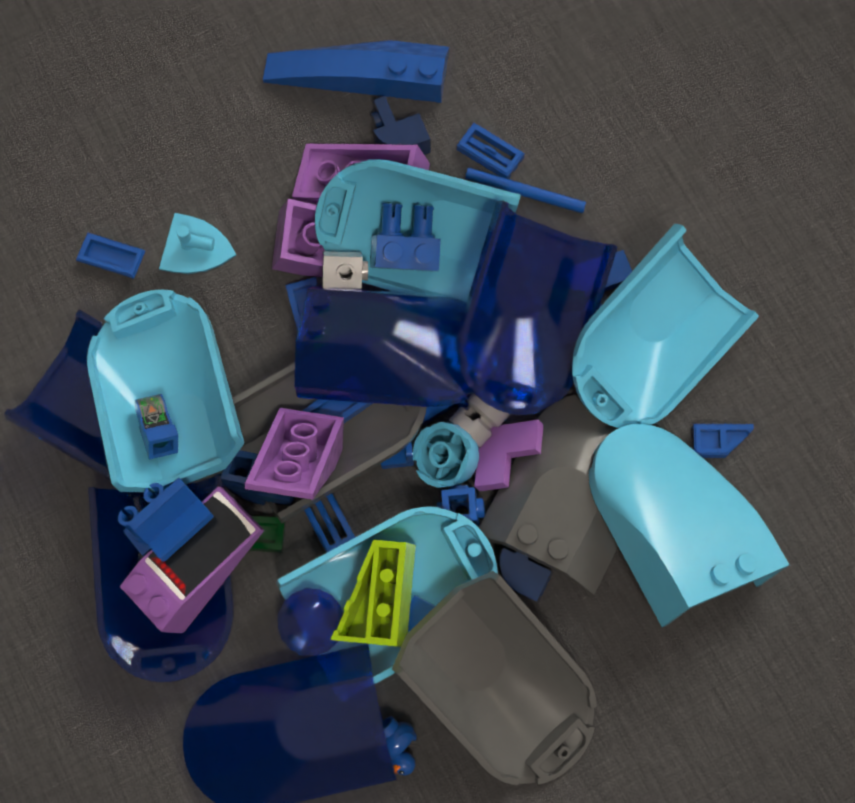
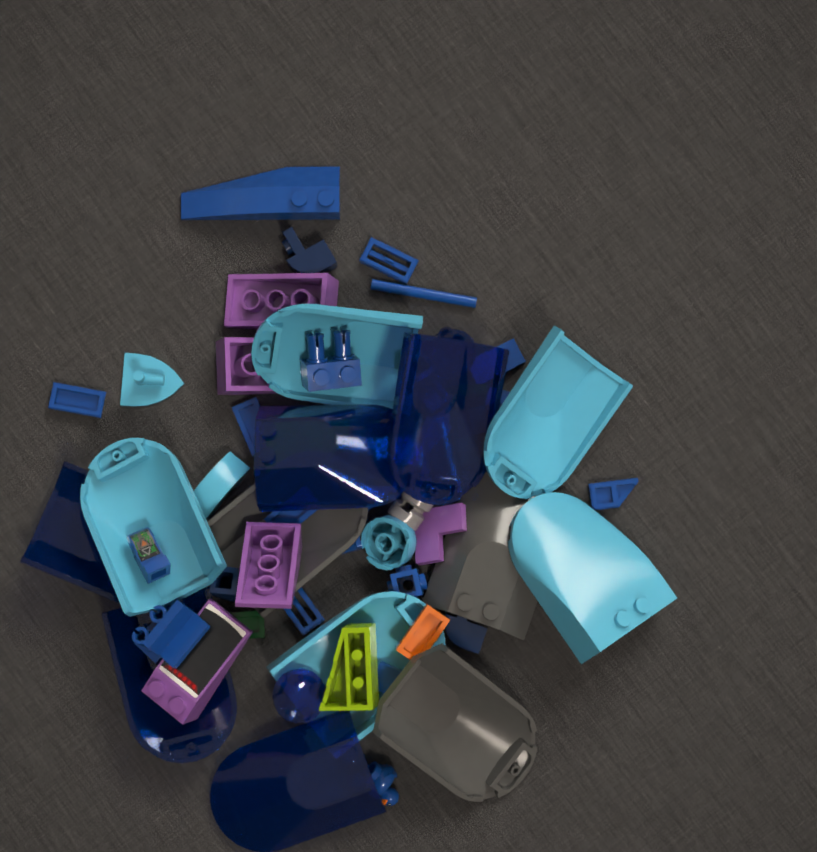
camera: 15 degrees left, 10 degrees up
(256, 362) = (219, 482): none -> medium azure brick
(344, 270) = (281, 395): light grey brick -> none
(472, 560) = (422, 632): none -> orange tile

